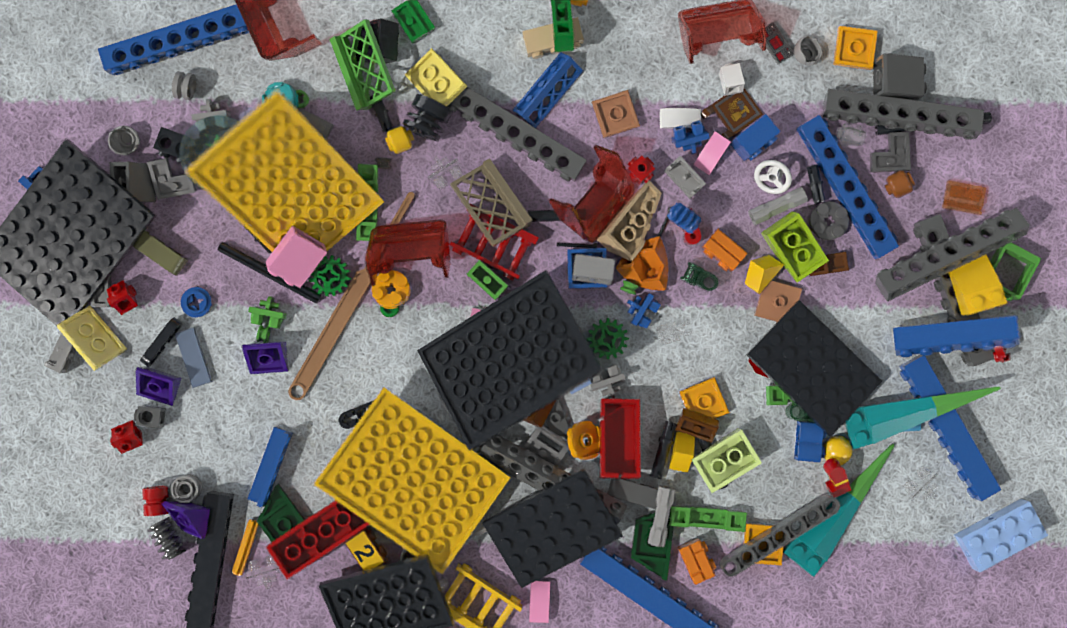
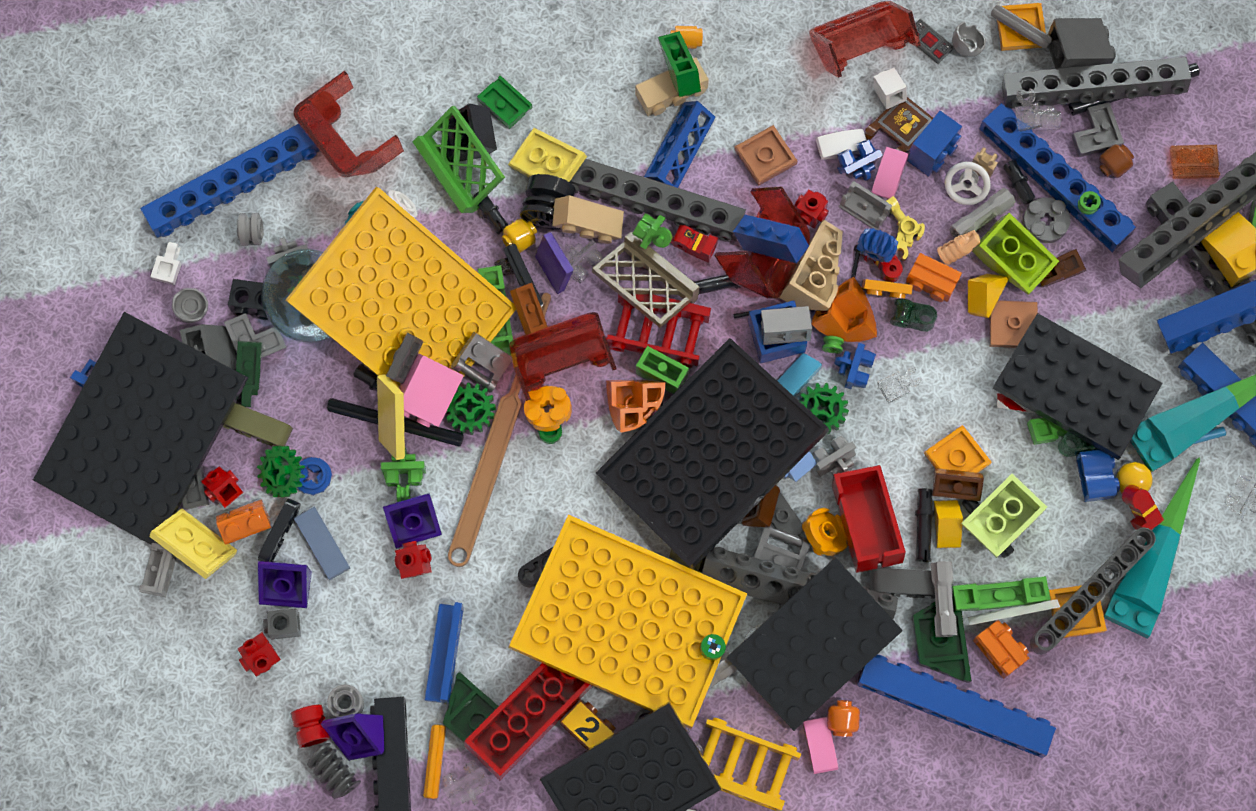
camera: 15 degrees left, 15 degrees down
(112, 102) = (167, 267): none -> white plate
(133, 329) = (243, 522): none -> orange brick
(160, 205) = (249, 365): none -> dark green hinge
(170, 295) = (281, 471): none -> green gear
(259, 390) = (413, 560): none -> red brick
(262, 274) = (391, 417): none -> light yellow tile
(280, 231) = (404, 358): none -> dark grey plate
(309, 92) = (403, 201): none -> white gear
(350, 236) = (486, 355): none -> flat silver plate
(392, 205) = (528, 308): none -> dark orange plate
(394, 176) = (519, 268): none -> black axle
(421, 171) = (554, 263): none -> dark purple tile
(455, 142) = (588, 219): none -> tan brick
(459, 300) = (633, 401): none -> orange brick
(472, 516) = (712, 647): none -> green tile
(504, 161) = (649, 230): none -> bright green hips
(539, 177) = (695, 243): none -> red leg
(561, 587) = (843, 718): none -> orange head
(594, 306) = (799, 373): none -> medium azure slope
(599, 192) = (771, 238): none -> blue brick
(679, 250) = (896, 290): none -> light orange plate
(714, 202) = (906, 228): none -> light yellow piece
(714, 536) = (1013, 612): none -> white sticker
(750, 230) = (958, 247): none -> light nougat hinge
(791, 162) = (986, 161): none -> tan plate
(838, 131) = (1028, 114): none -> clear plate
(854, 49) = (1021, 26): none -> light grey axle
(873, 218) = (1095, 199): none -> bright green bush

